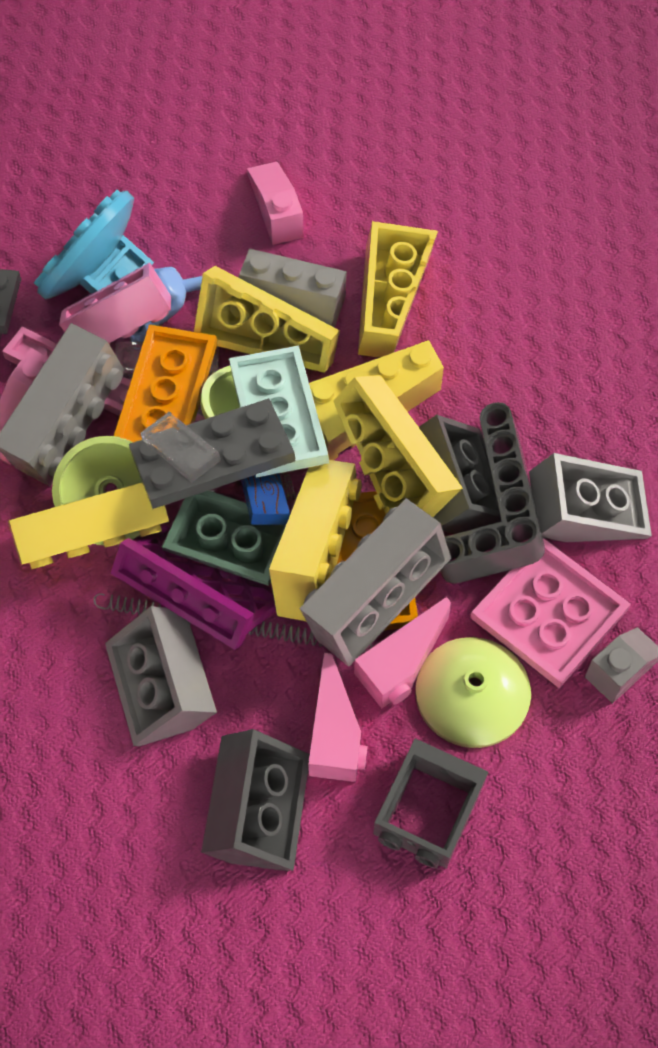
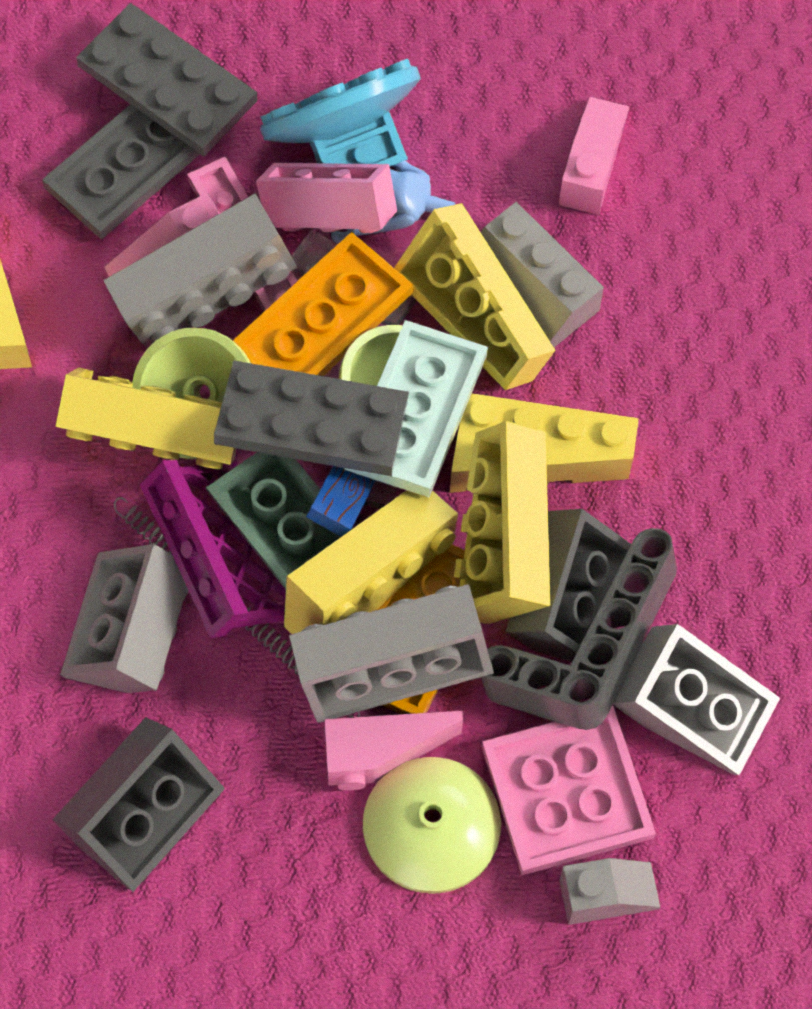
camera: 30 degrees right, 5 degrees up
(180, 447) = (277, 395): clear tile -> none
(336, 733) = (258, 783): bright pink slope -> none
(392, 275) = (652, 325): light yellow wedge -> none
(447, 769) = (323, 855): dark grey window -> none

